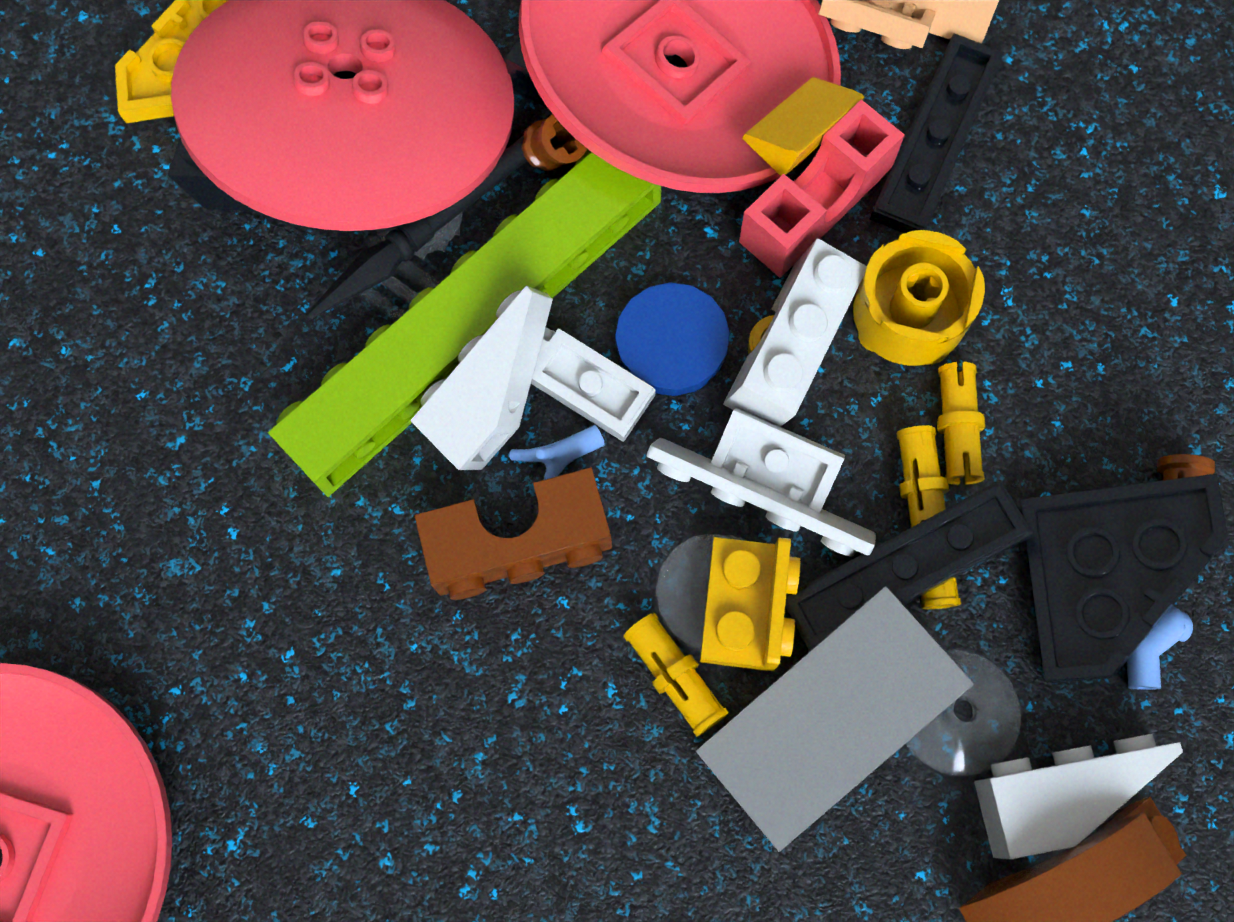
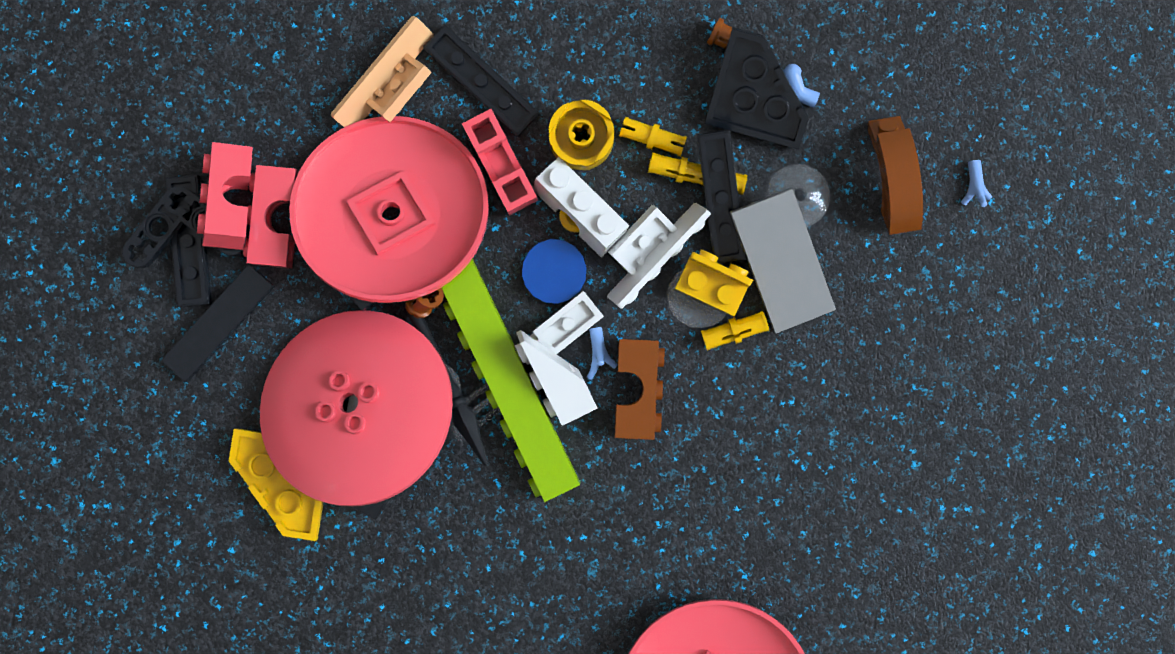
camera: 75 degrees left, 15 degrees up
(800, 123) = (460, 159): yellow slope -> none
(1064, 803) = (857, 166): white slope -> none

